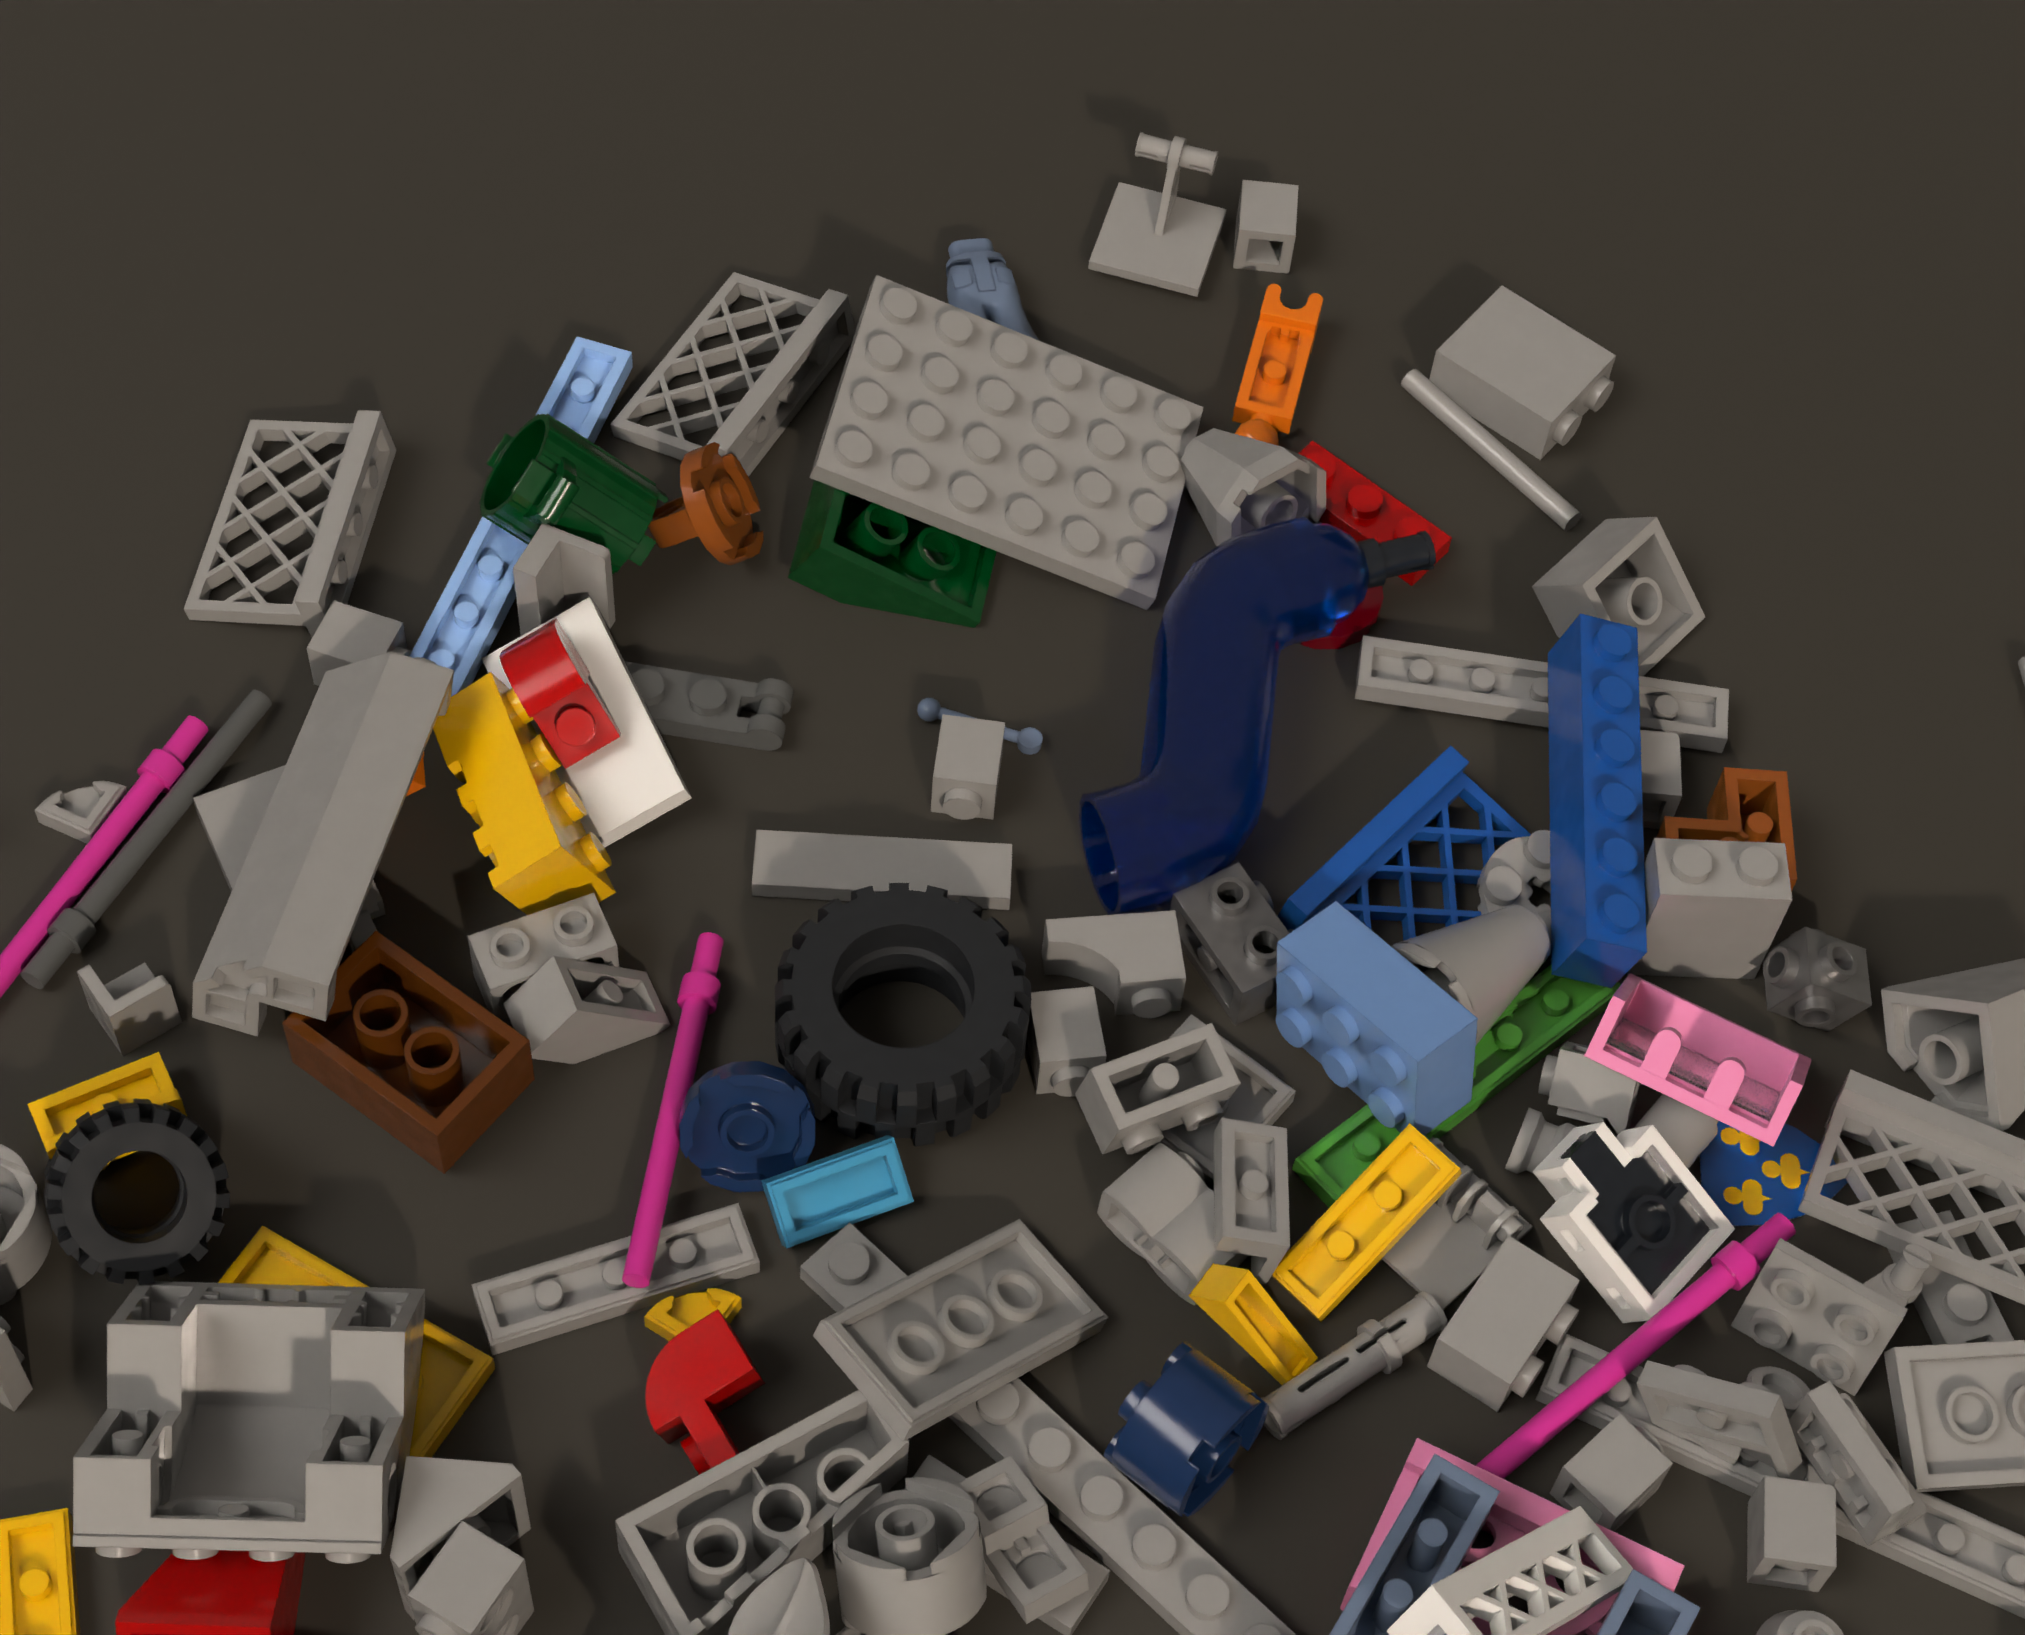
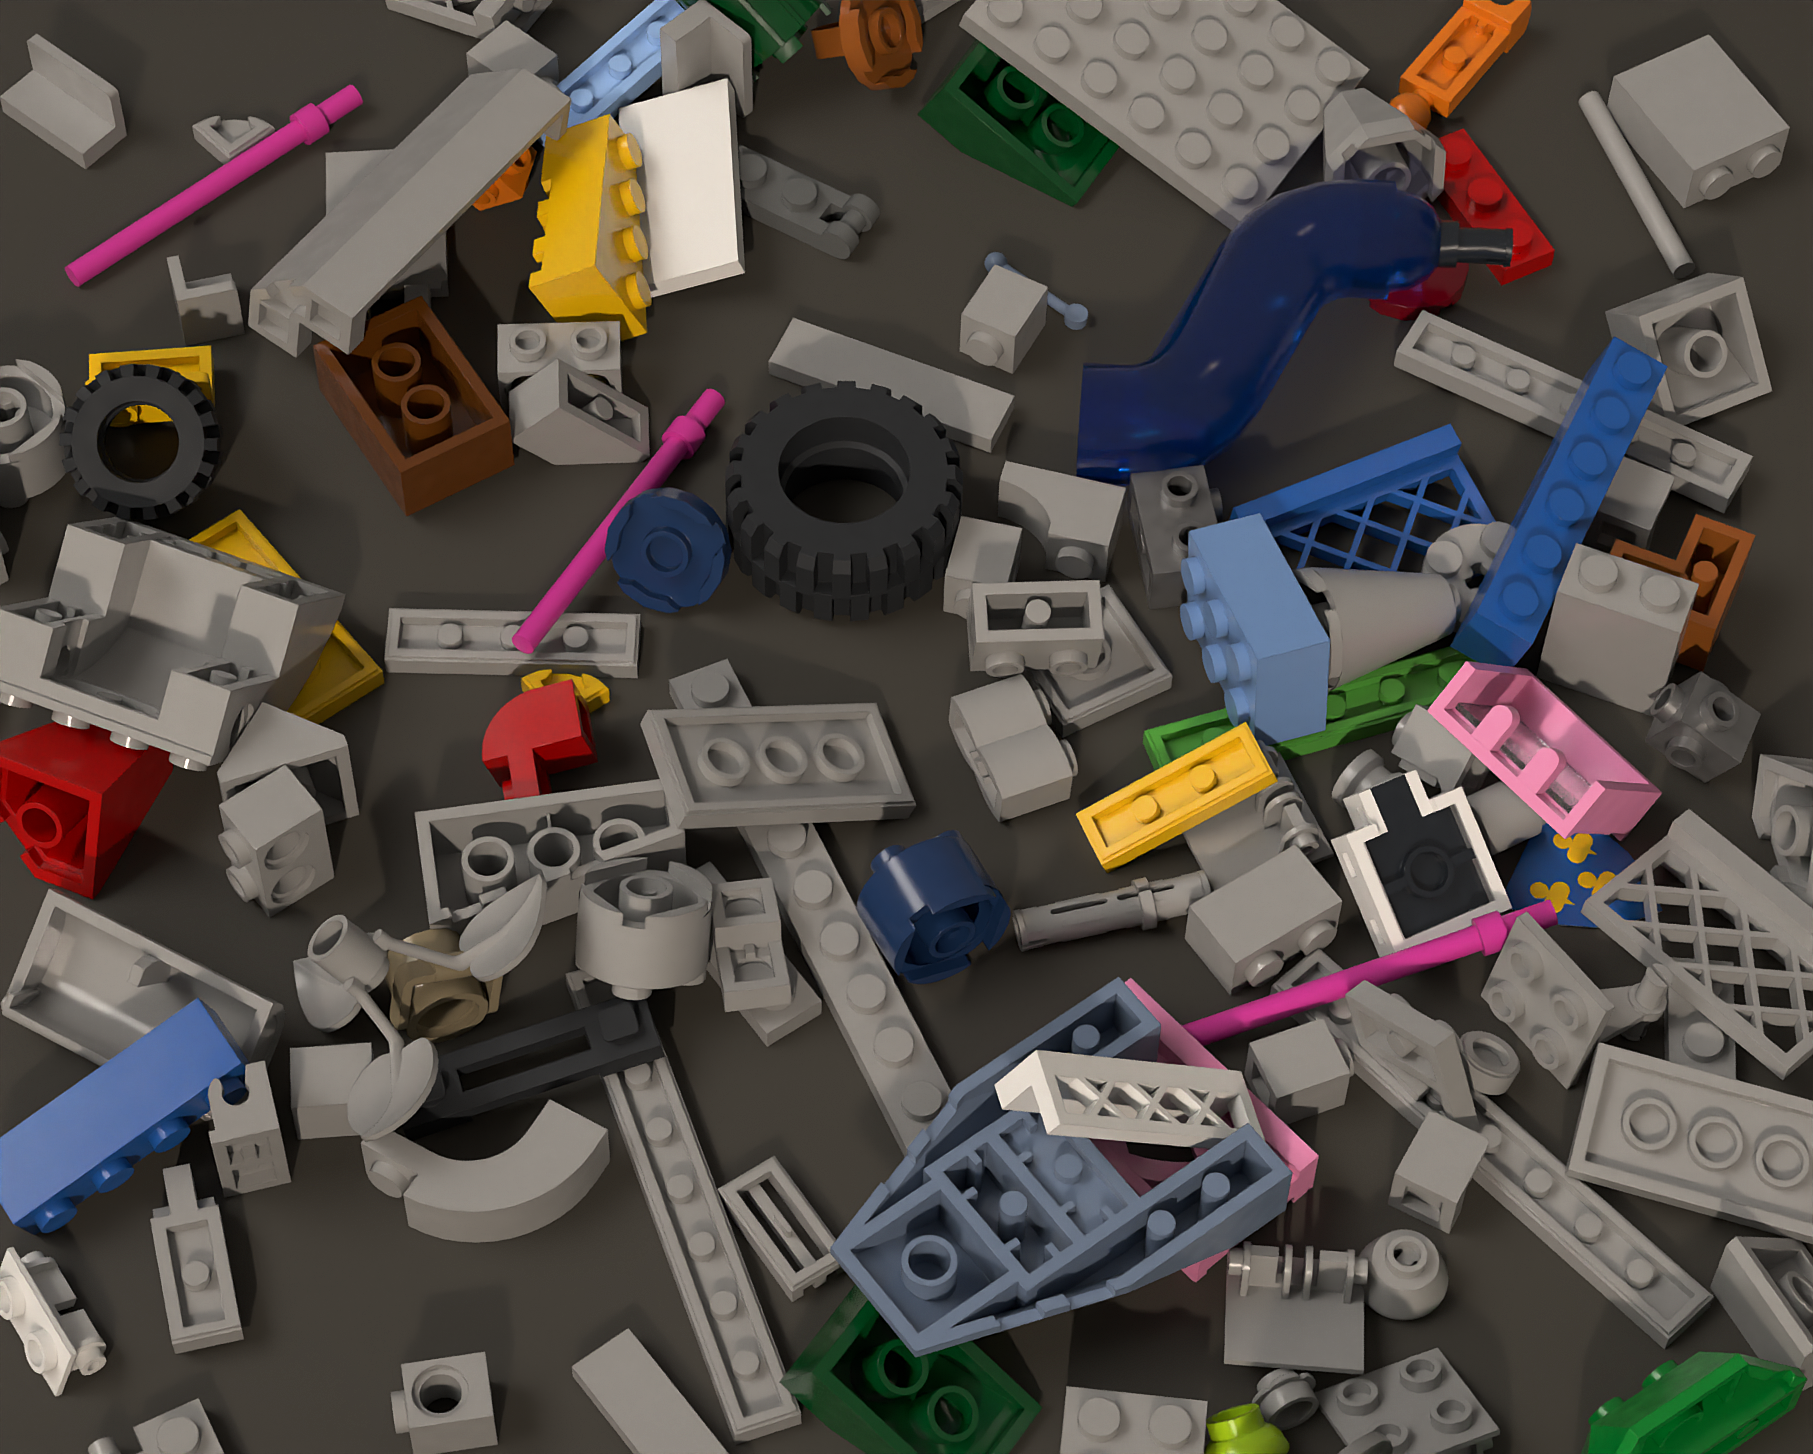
camera: 25 degrees right, 0 degrees up
(76, 926) = (187, 228): dark grey bar -> none
(557, 693) = (657, 139): red brick -> none
(837, 1191) = (728, 630): dark azure tile -> none
(1252, 1193) = (1079, 736): light grey panel -> none
(1253, 1320) = (1037, 844): yellow piece -> none
(1855, 1463) = (1521, 1128): light grey bracket -> none

